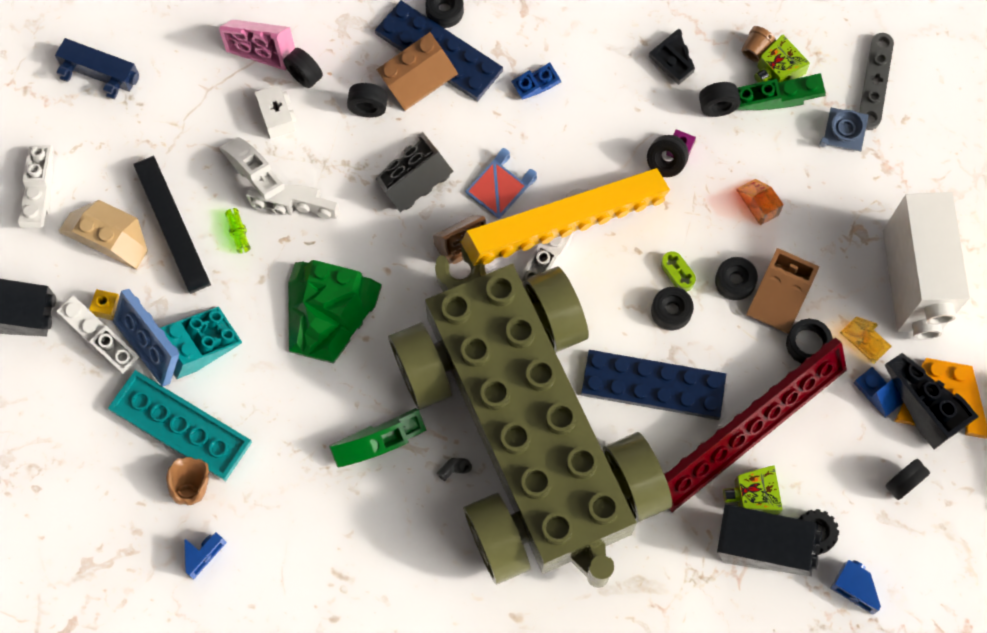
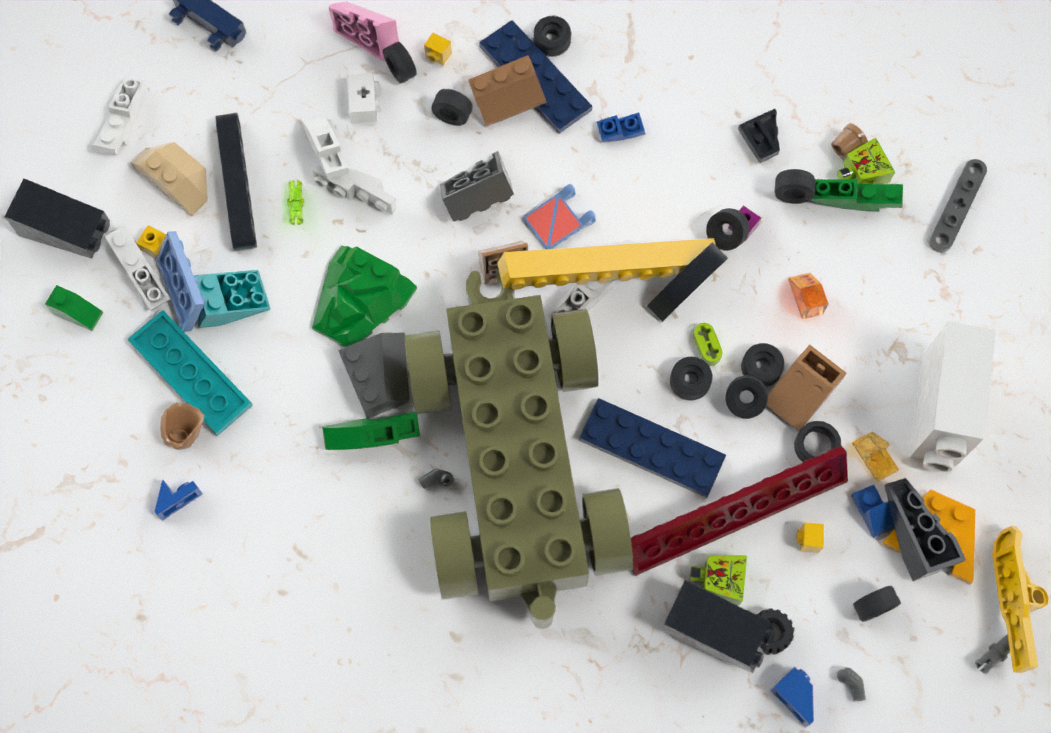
camera: 15 degrees right, 0 degrees up
(43, 390) = (73, 308): none -> green slope
(336, 45) = (437, 49): none -> yellow plate
(367, 378) = (378, 372): none -> dark grey wedge
(644, 216) = (687, 281): none -> black slope
(735, 325) = (751, 409): none -> black tyre
(828, 432) = (810, 537): none -> yellow plate
(845, 129) = (913, 245): sand blue hat -> none
(906, 558) = (854, 680): none -> dark grey arm

